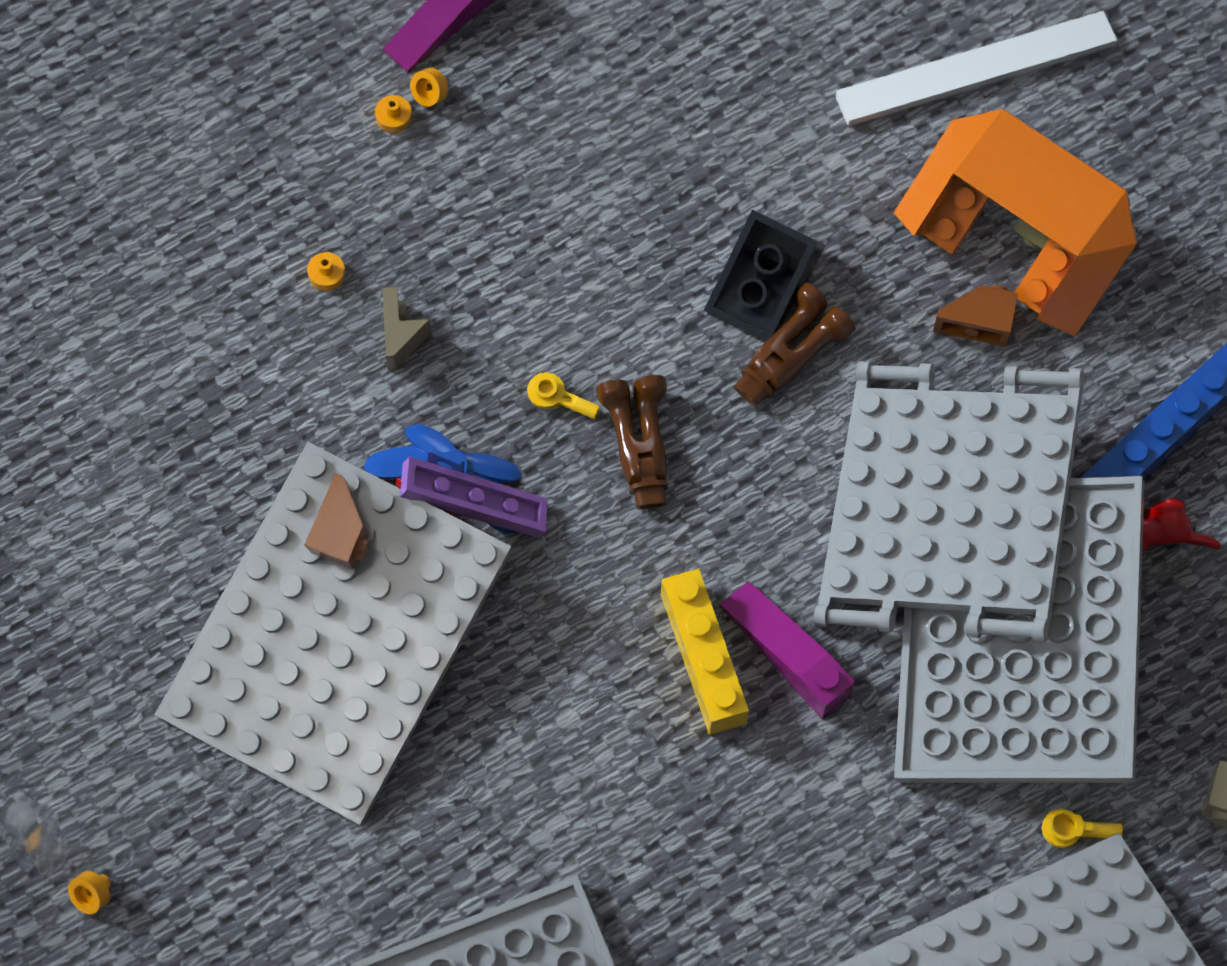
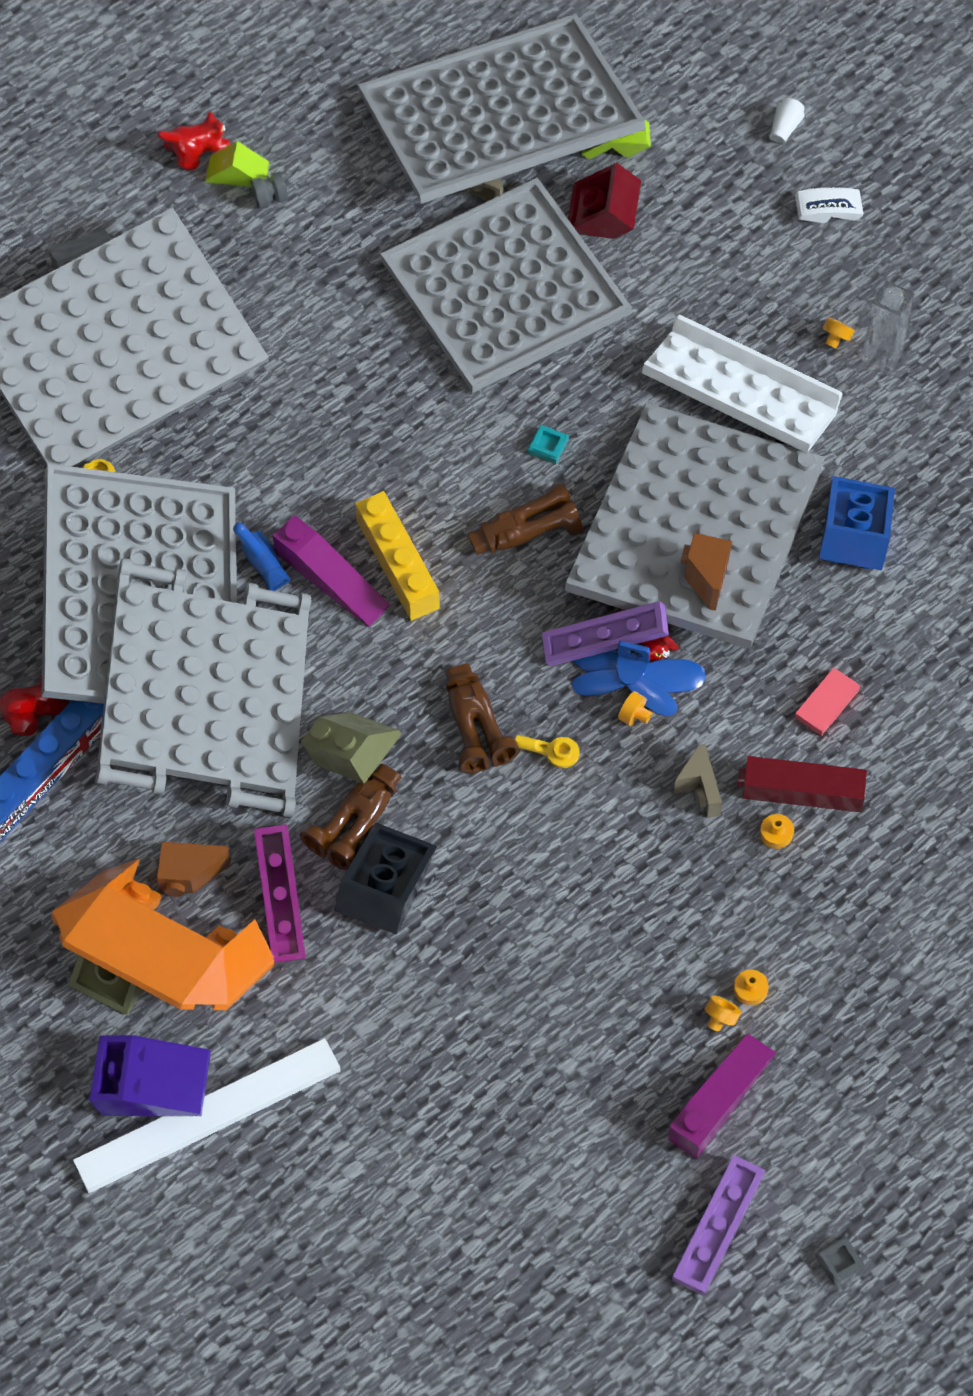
camera: 175 degrees right, 5 degrees down
(137, 620) = (857, 523): none -> blue slope
(232, 409) = (827, 701): none -> coral tile
(235, 825) = (744, 384): none -> white bracket
(285, 309) = (803, 784): none -> dark red brick
(456, 423) = (634, 709): none -> light orange tile
(493, 790) = (548, 444): none -> teal tile
(560, 671) = (511, 526): none -> reddish brown piece
(786, 421) = (349, 744): none -> olive slope
(871, 683) = (262, 557): none -> blue piece
(883, 279) = (280, 893): none -> magenta slope
(1040, 89) = (148, 1077): none -> dark purple slope

